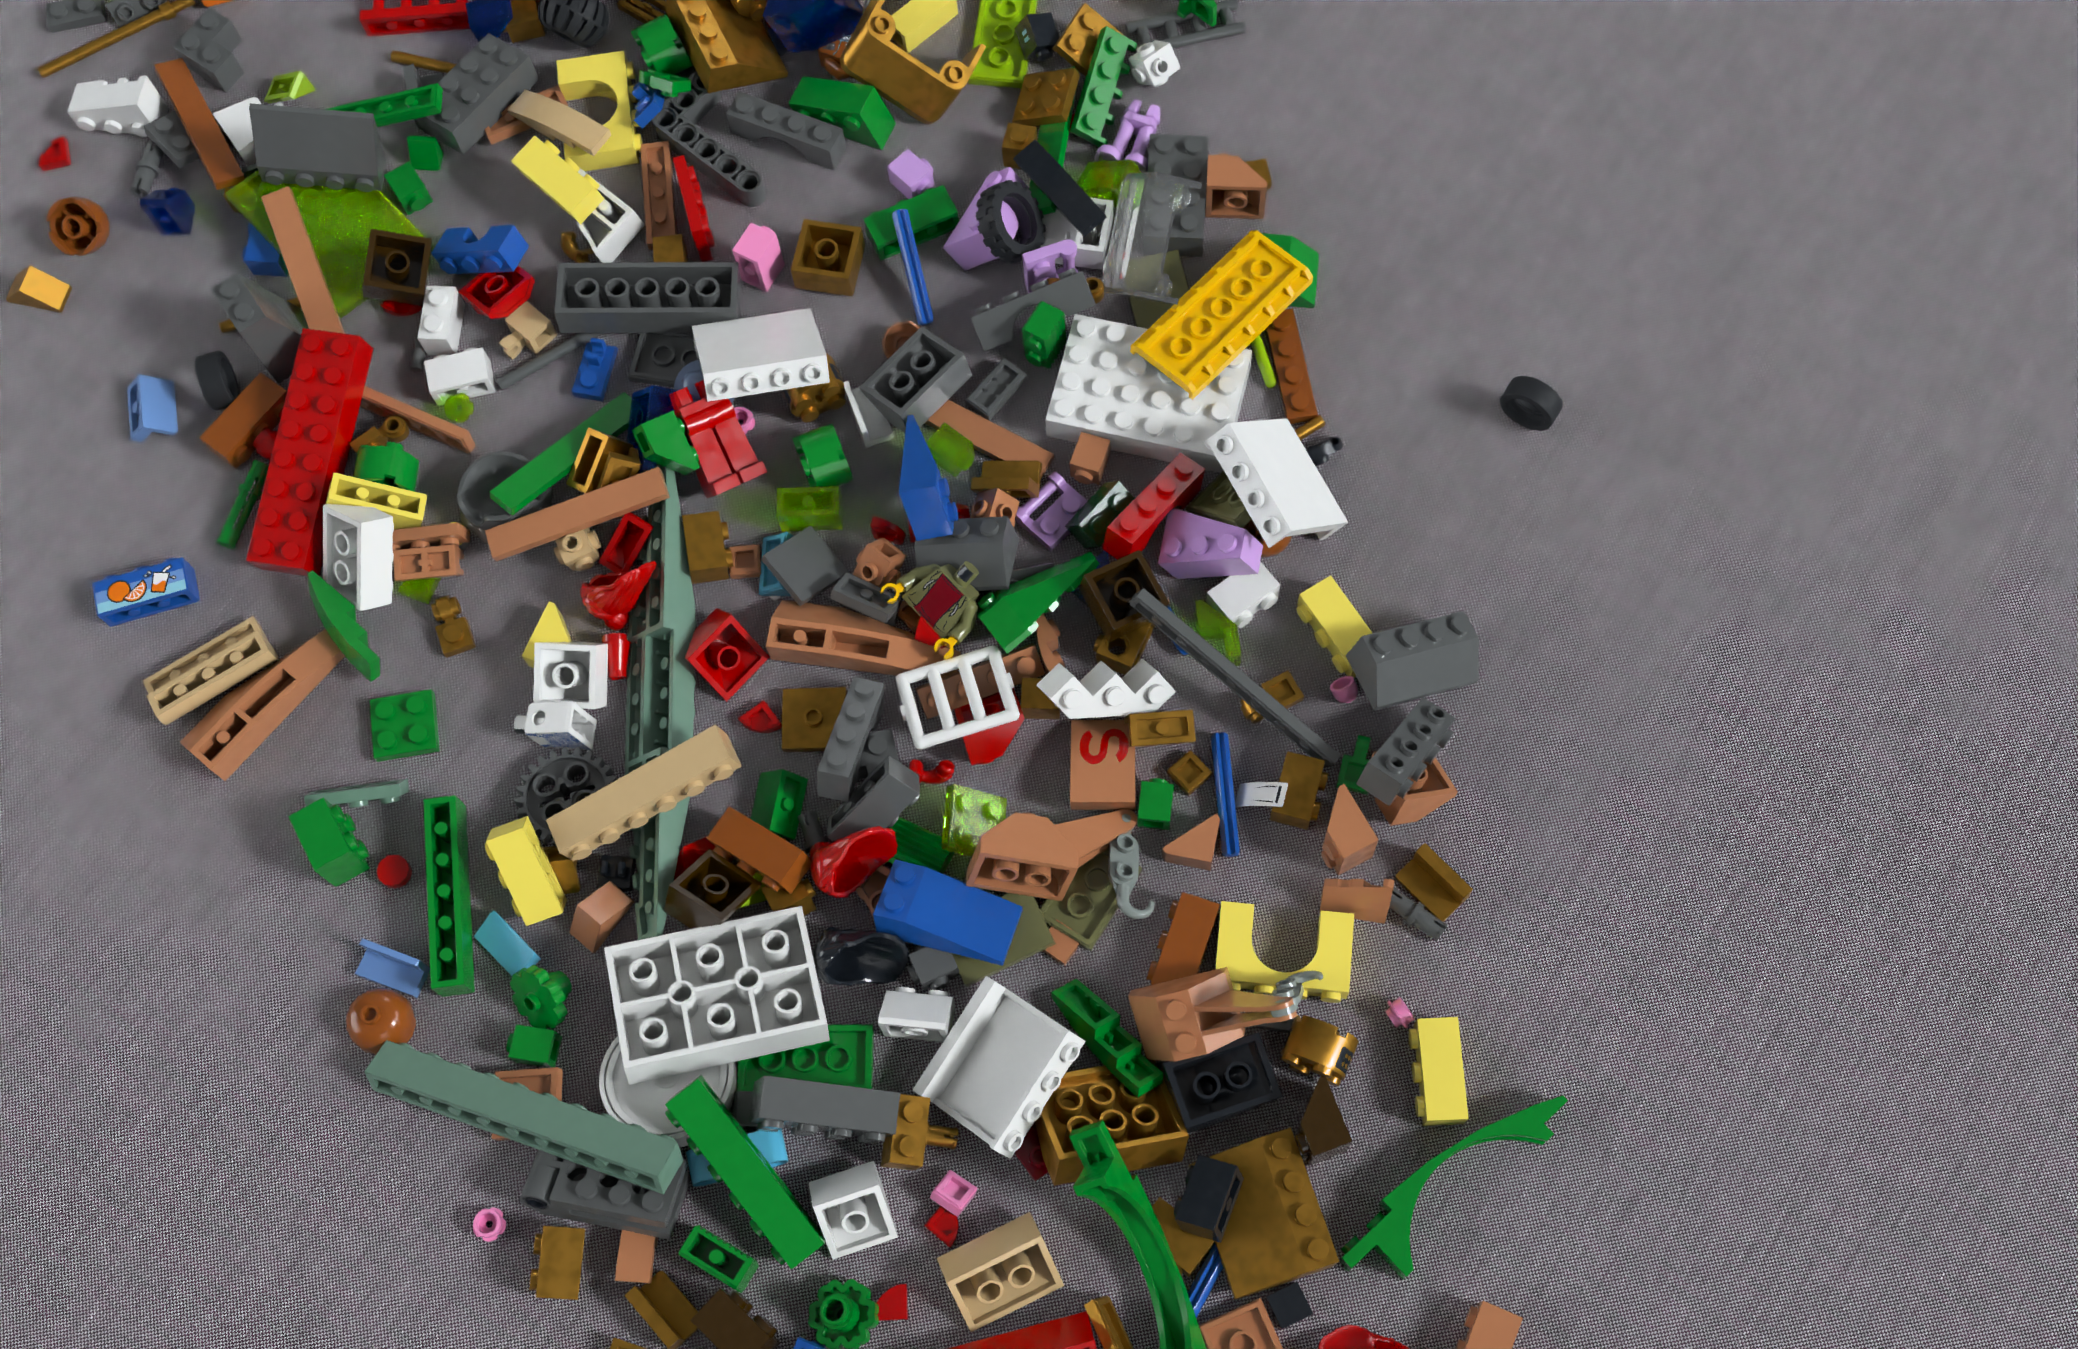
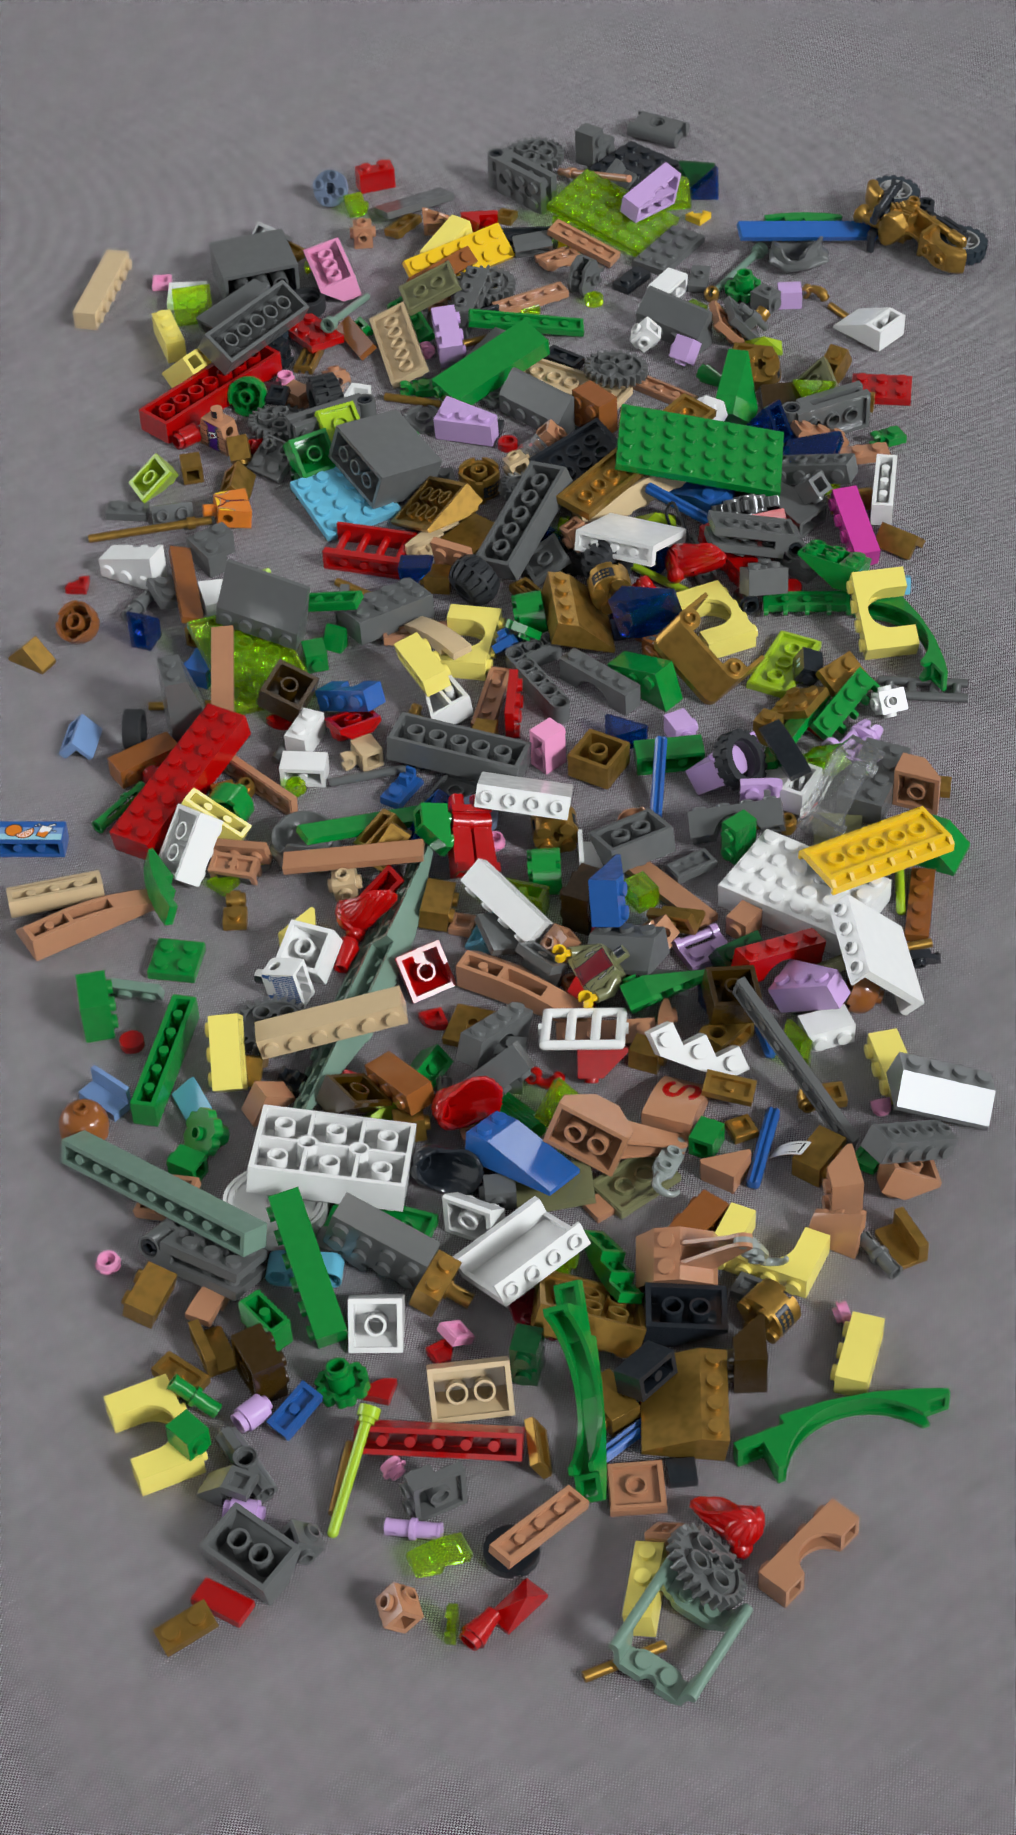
camera: 15 degrees right, 25 degrees down
(795, 530) = (506, 902): none -> white brick
(844, 203) = (625, 729): none -> clear blue slope
(881, 486) = (576, 900): none -> dark brown brick
(885, 529) = (576, 927): red tile -> none
(1055, 1211) = (527, 1355): none -> dark green piece

